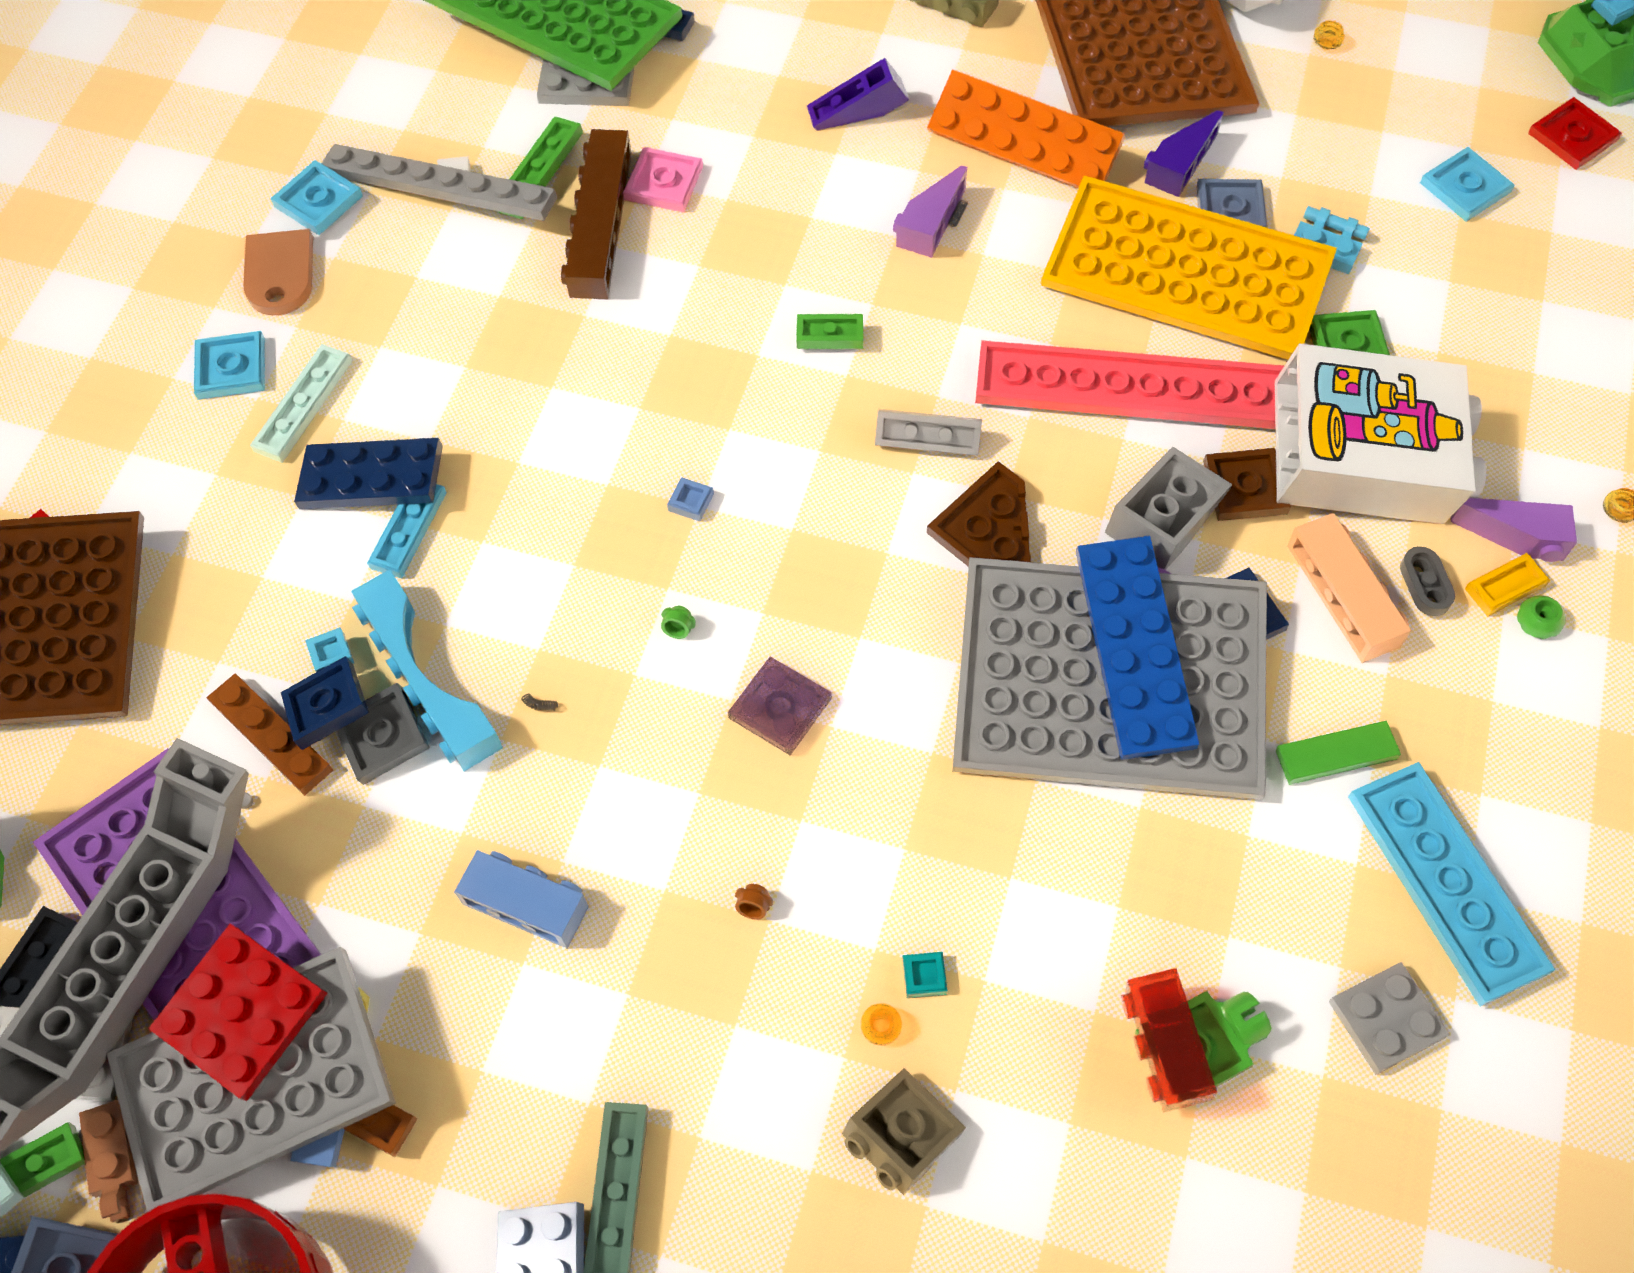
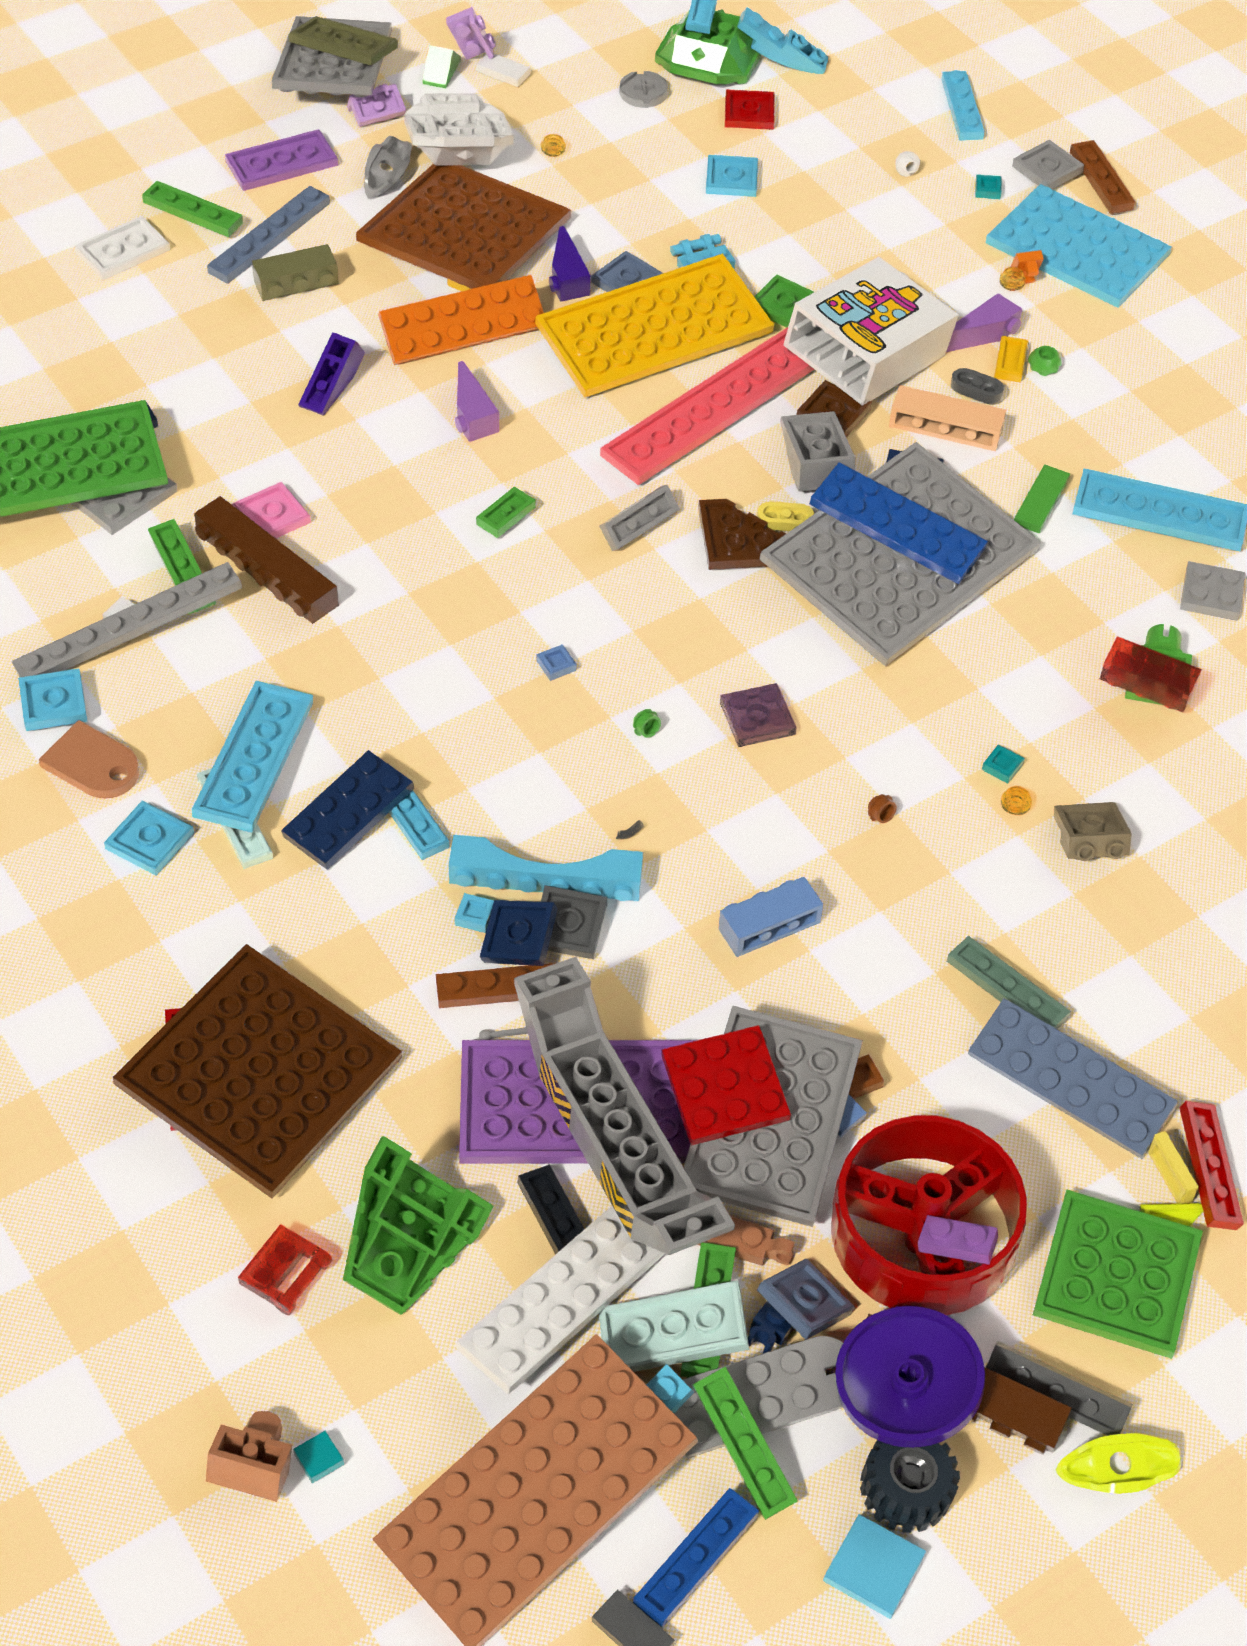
camera: 55 degrees left, 10 degrees down
(365, 365) = (252, 756): none -> medium azure plate
(1061, 544) = (784, 515): none -> light yellow plate
(1492, 42) = (643, 89): none -> light grey tile

